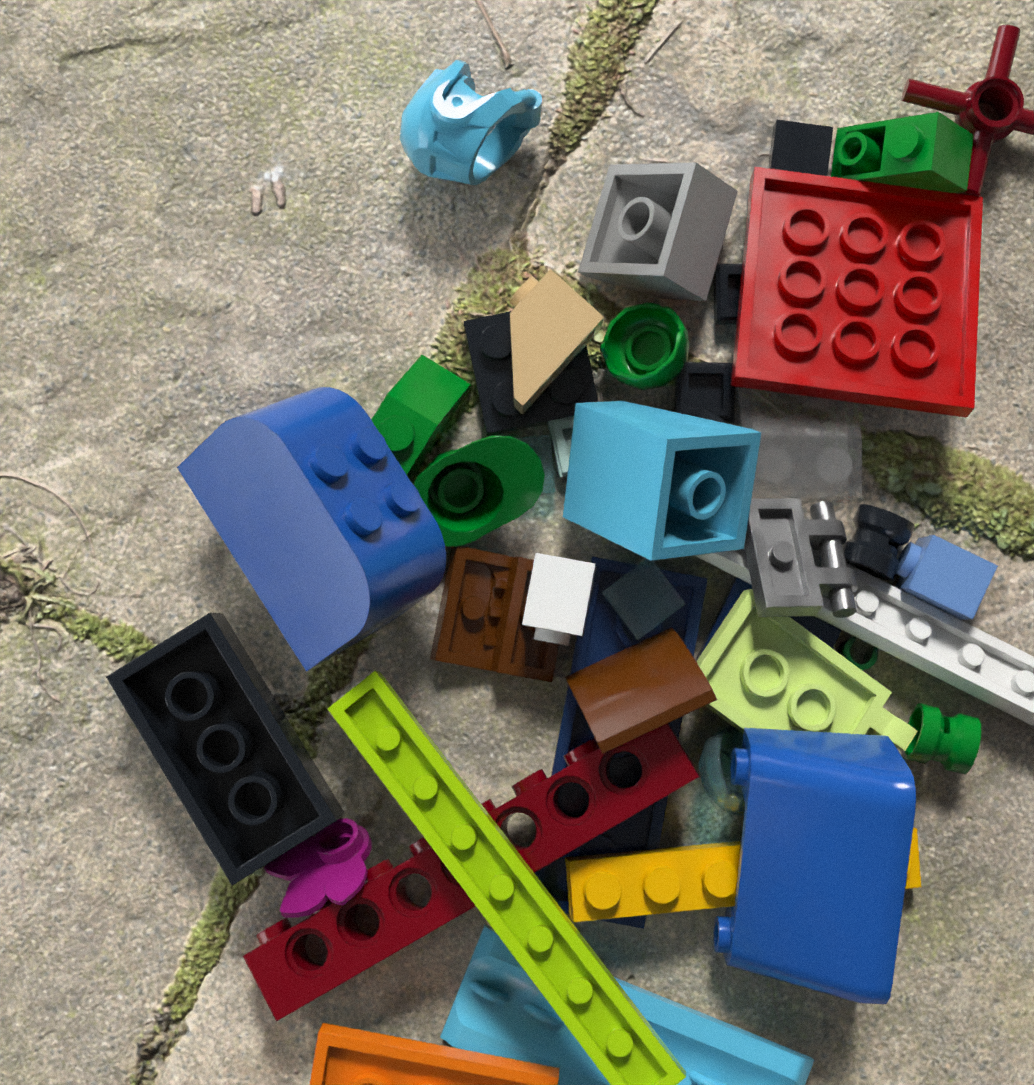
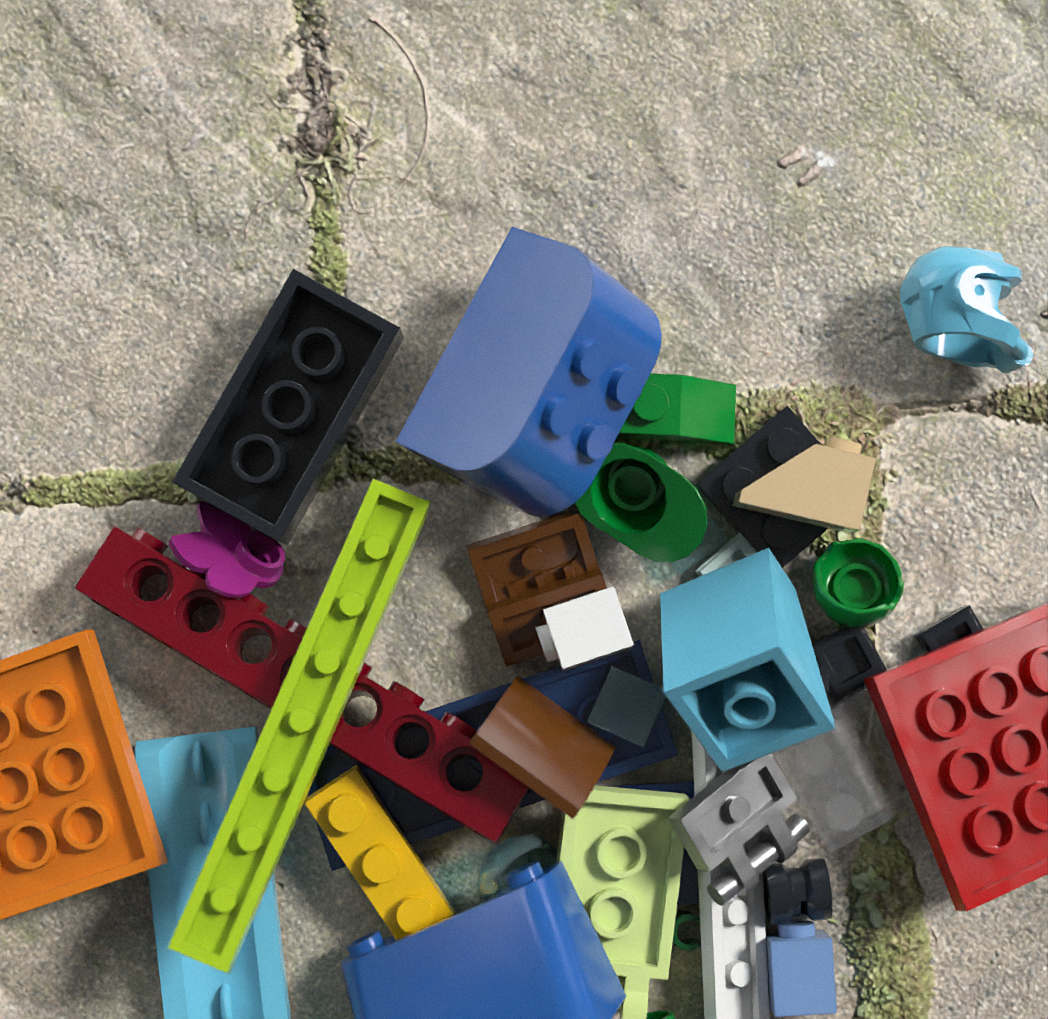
camera: 60 degrees right, 0 degrees up
(659, 229) = (970, 536): light grey slope -> none

